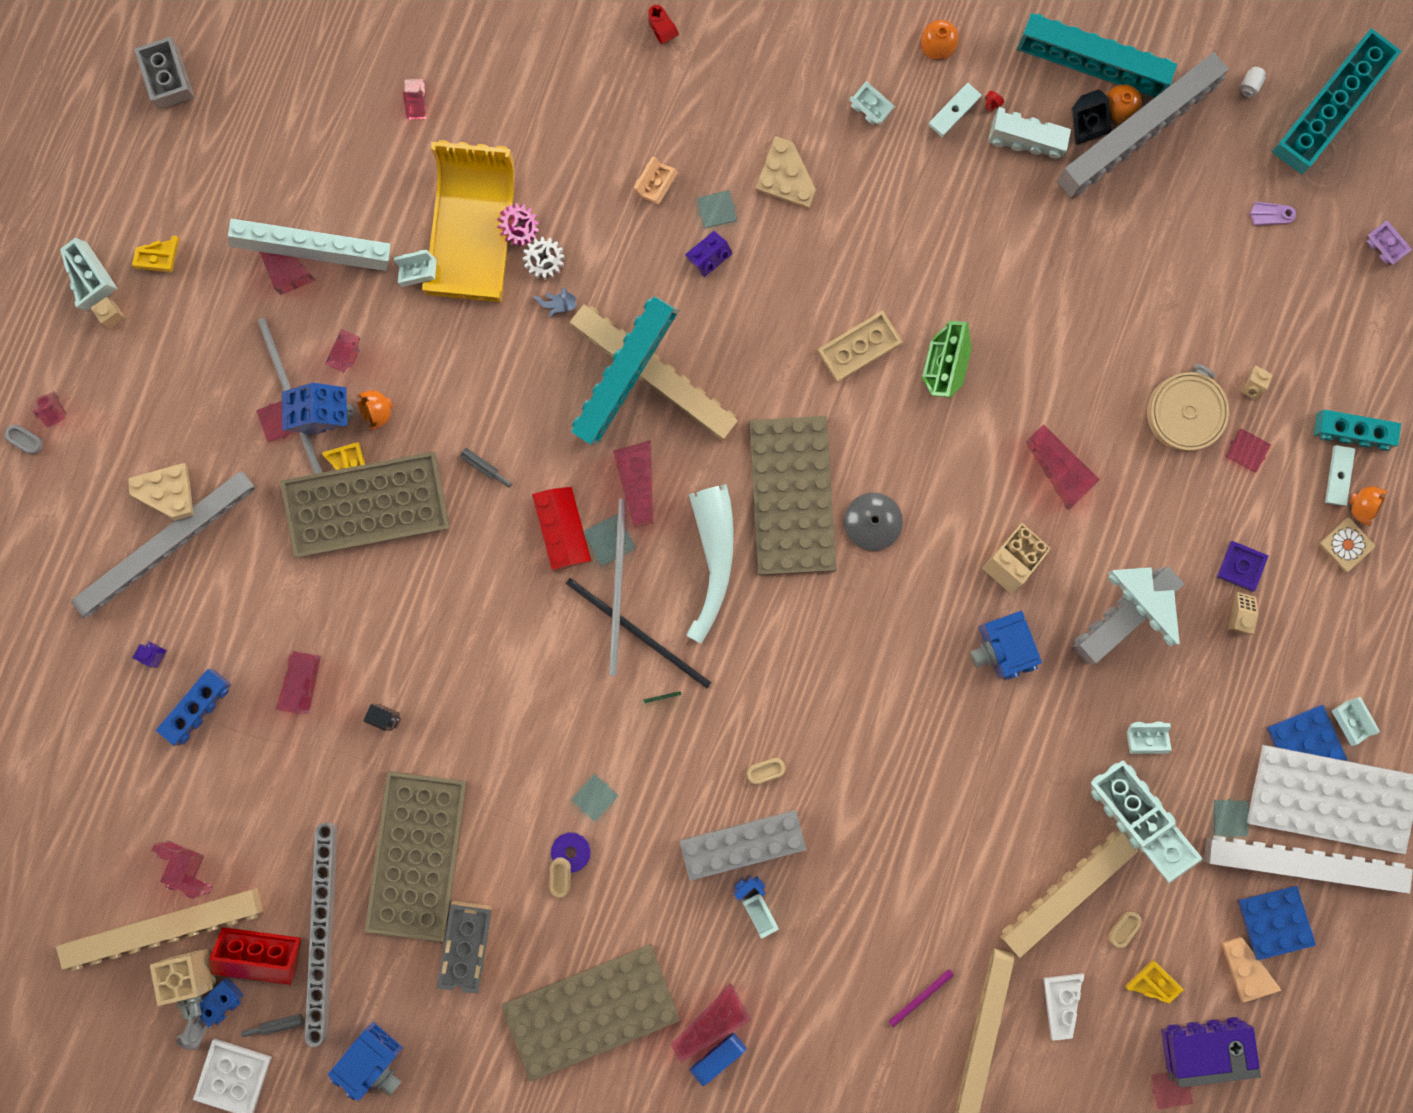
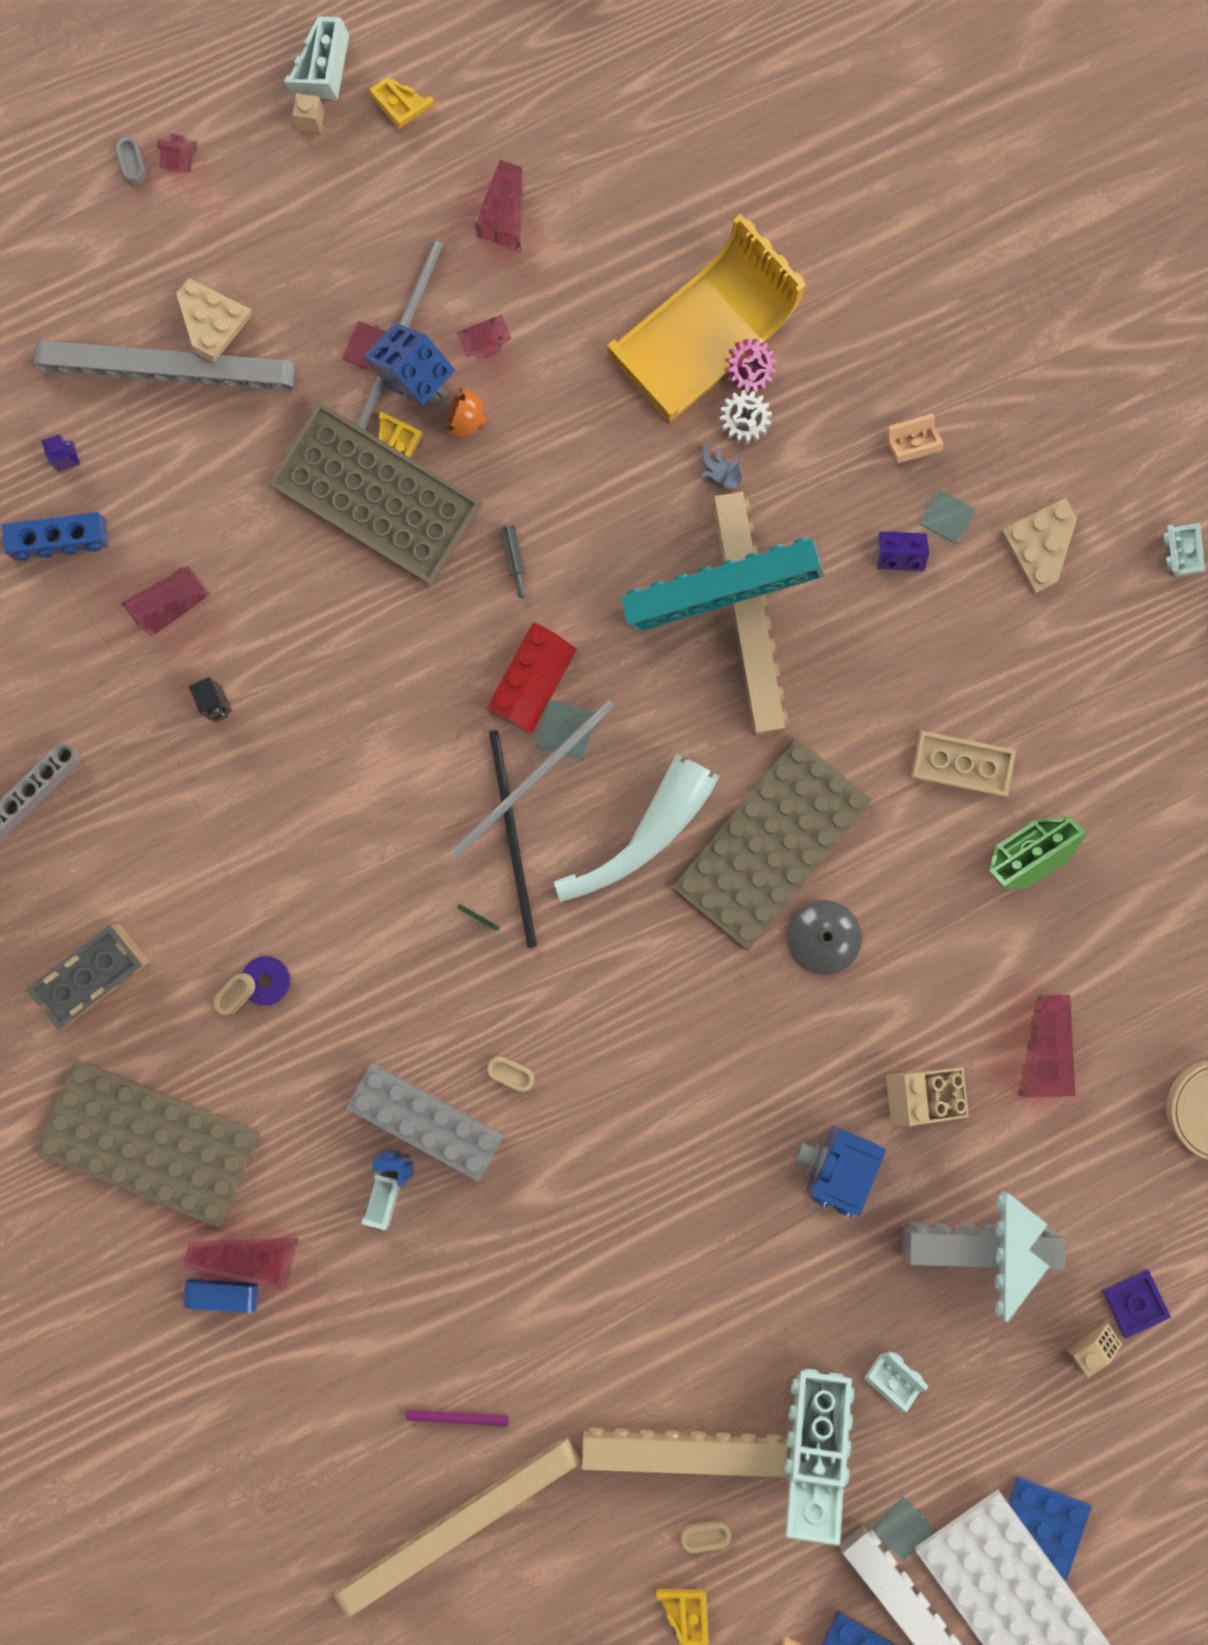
camera: 40 degrees right, 0 degrees up
(308, 244) = (542, 210): light aqua brick -> none
(415, 98) = (763, 167): clear pink slope -> none
(416, 267) = (620, 320): light aqua bracket -> none
(416, 856) = (125, 853): dark tan plate -> none
(594, 797) = (333, 951): clear light blue piece -> none
(636, 476) = (643, 694): clear pink wedge -> none
(663, 27) = (1055, 300): red piece -> none
(1062, 1002) = (584, 1547): white wing -> none
(1355, 720) = (1109, 1551): light aqua bracket -> none

